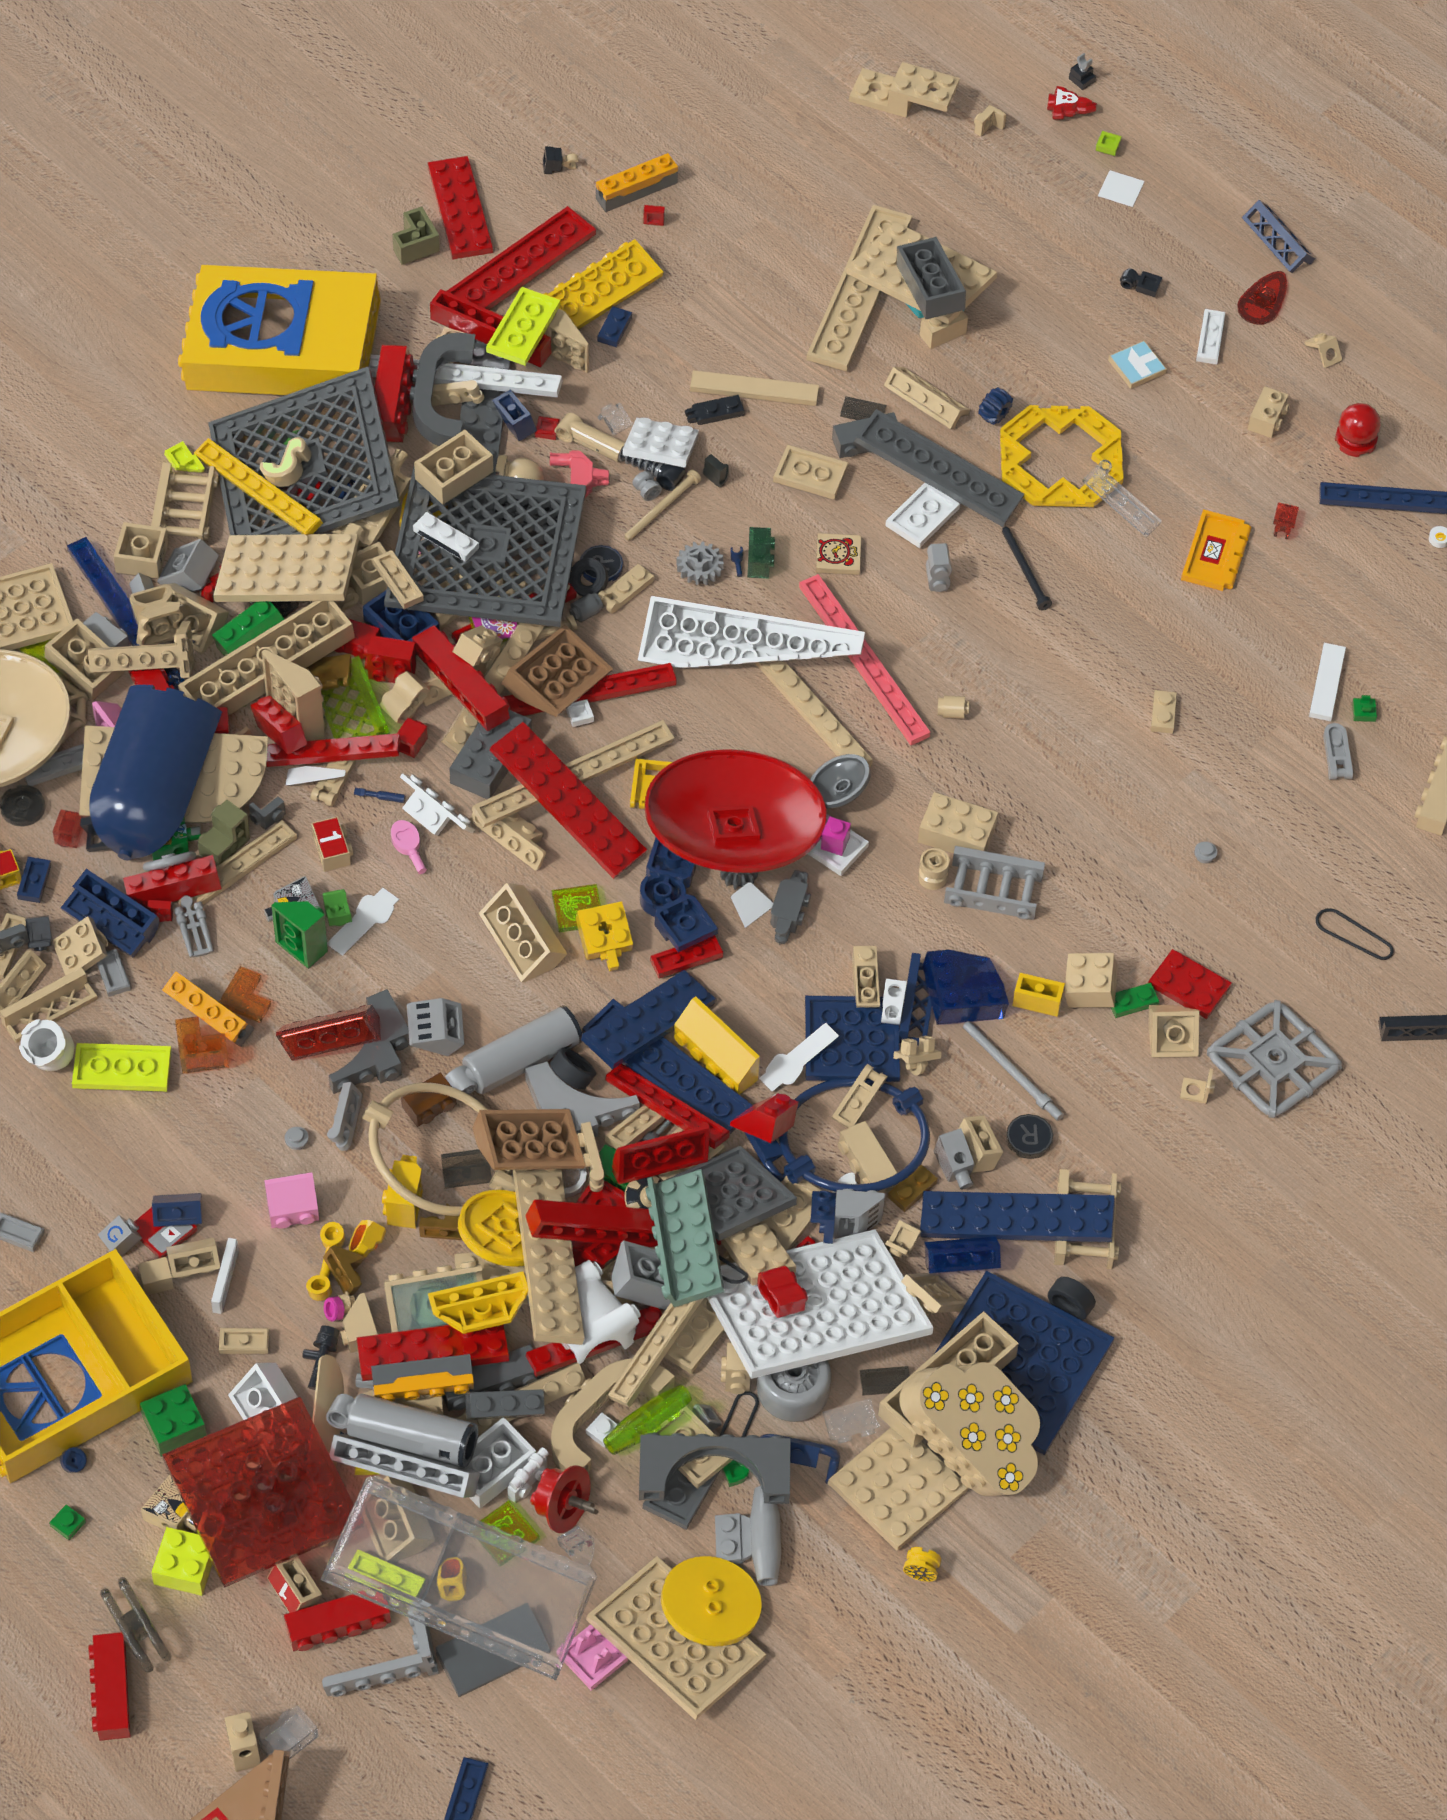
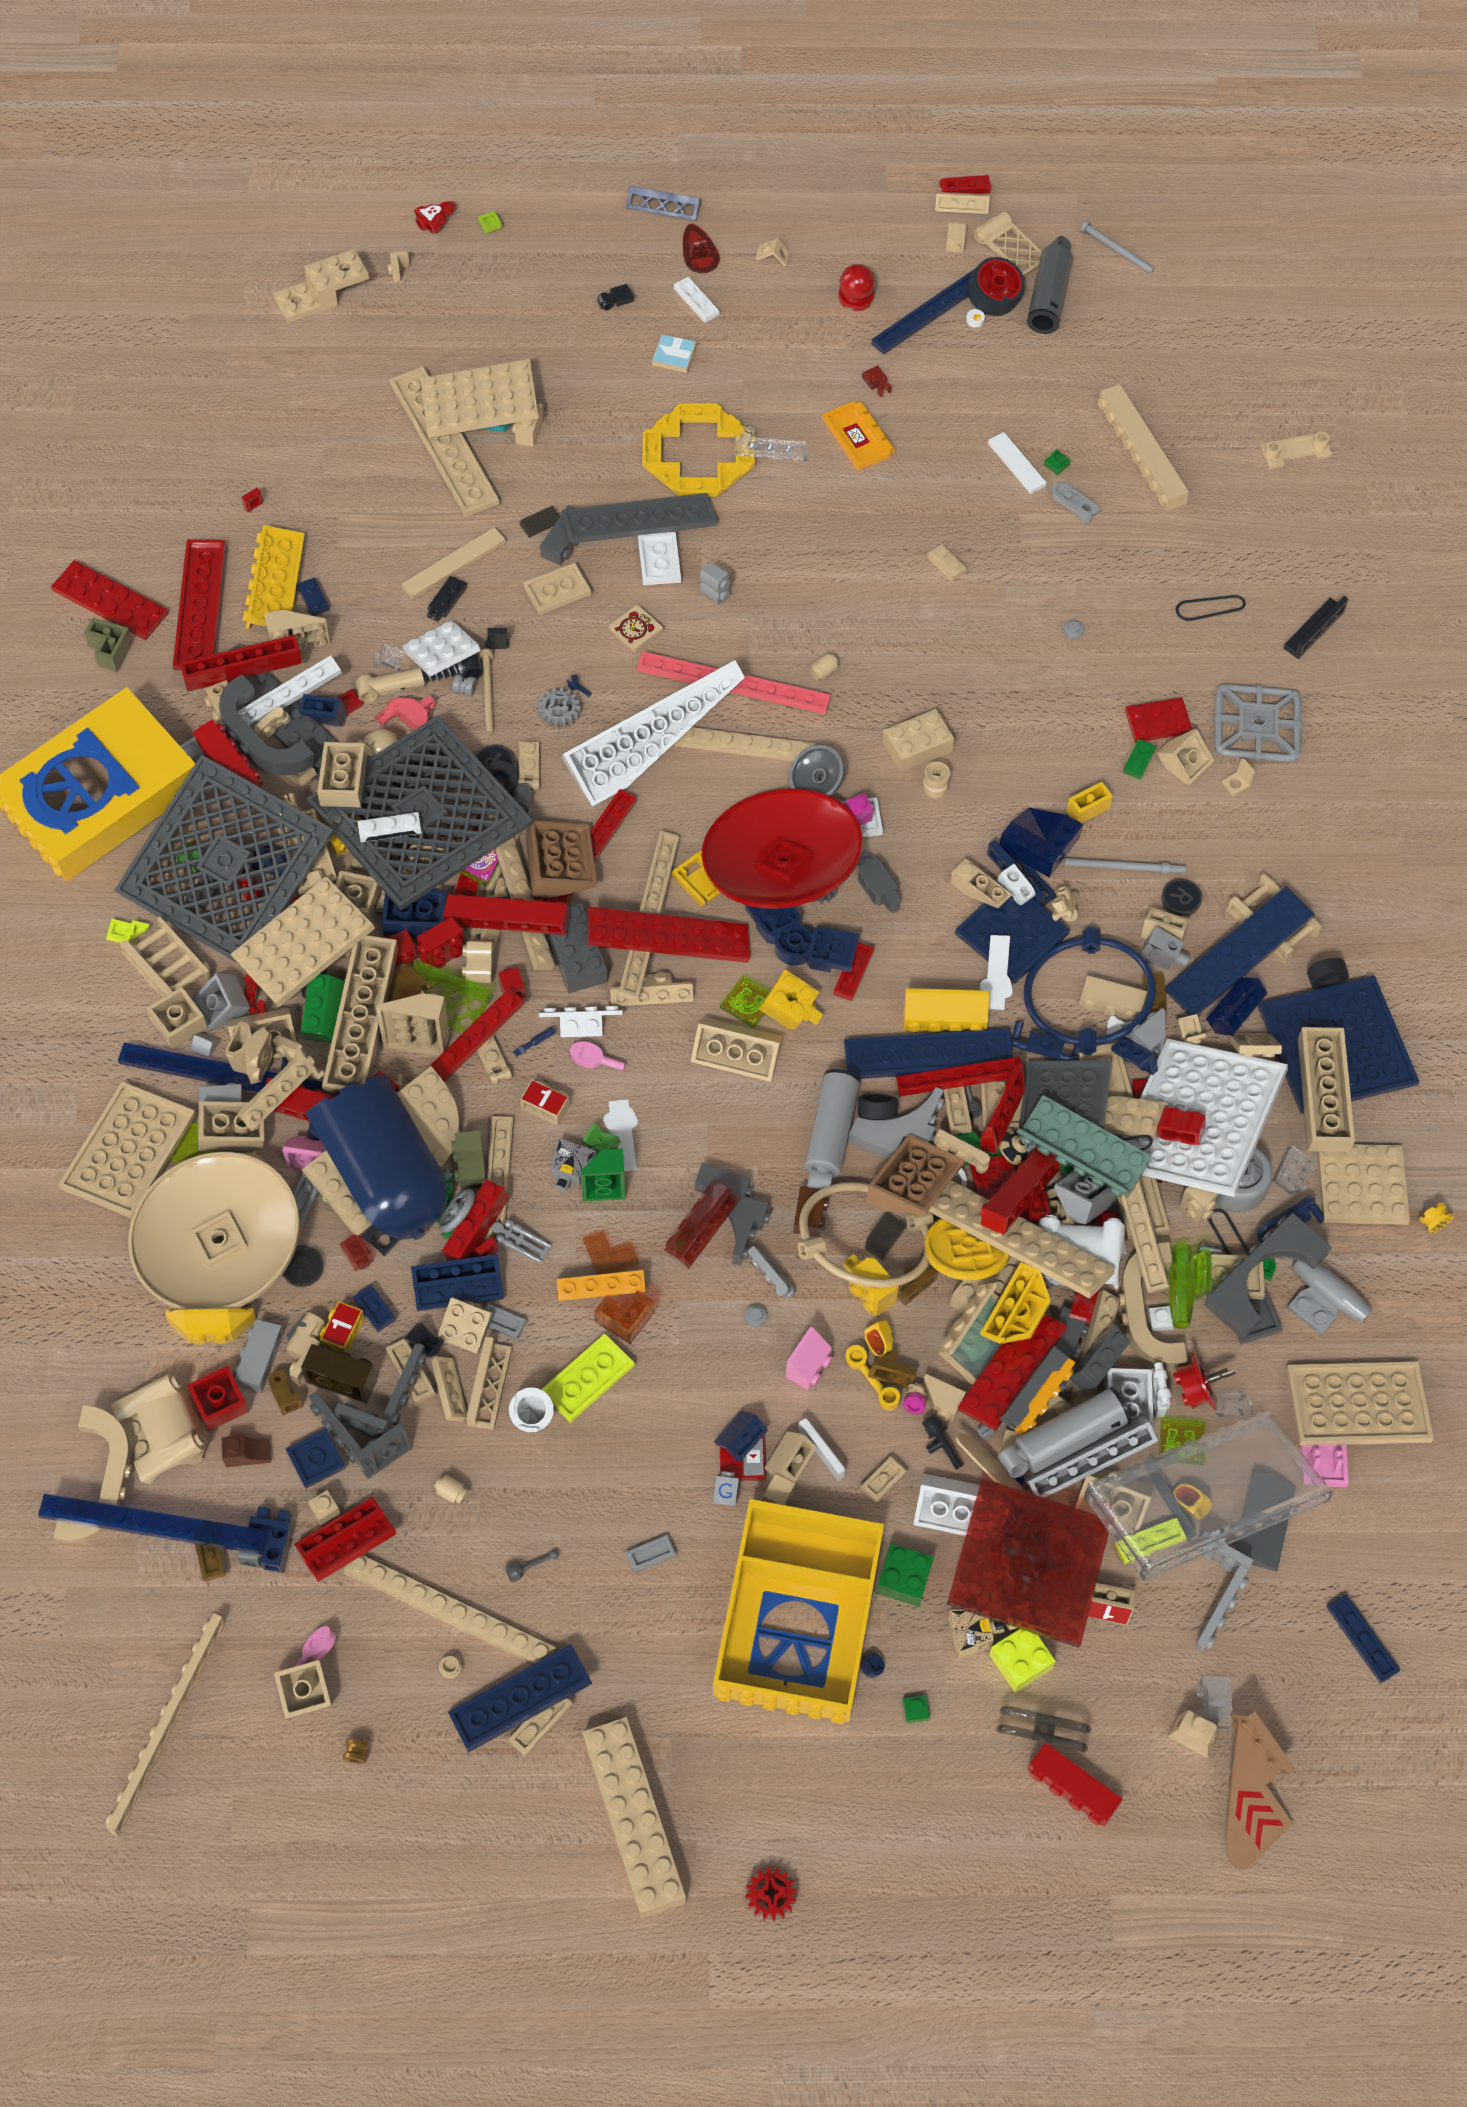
camera: 45 degrees left, 5 degrees up
(258, 488) = (210, 904): yellow tile -> none
(269, 814) = (482, 1117): dark grey bracket -> none
(278, 724) = (419, 1052): red brick -> none
(290, 467) = (225, 871): tan animal -> none
(309, 774) = (473, 1069): white sticker -> none
(333, 1620) = (1152, 1605): red brick -> none
(398, 579) = (394, 882): tan plate -> none
(436, 1025) = (761, 1158): light grey slope -> none
(478, 645) = (496, 882): tan brick -> none
(523, 326) = (270, 641): neon yellow plate -> none
(553, 160) = (138, 515): black piece -> none
(580, 713) = (603, 872): white plate -> none
(636, 182) = (215, 486): light orange piece -> none
(644, 1020) = (883, 1032): dark blue plate -> none
(711, 1601) = (1352, 1360): yellow plate -> none
(750, 903) = (851, 901): white sticker -> none
(759, 552) = (589, 668): clear green brick -> none
(768, 1117) = (1034, 1026): red slope -> none
(859, 1097) = (1063, 964): tan plate -> none
(882, 1379) = (1279, 1127): clear smoke tile -> none
(925, 396) = (570, 480): tan fence -> none
(931, 278) = (502, 393): dark grey brick -> none
(975, 1424) = (1383, 1100): tan brick -> none
(995, 405) = (624, 449): dark blue gear -> none
(999, 864) = (977, 739): light grey fence -> none
(1044, 602) = (797, 553): black bar -> none
(1082, 73) = (419, 188): black piece -> none
(1091, 980) = (1108, 765): tan brick -> none
(1121, 188) = (529, 246): white sticker -> none
(1268, 412) = (789, 319): tan brick -> none

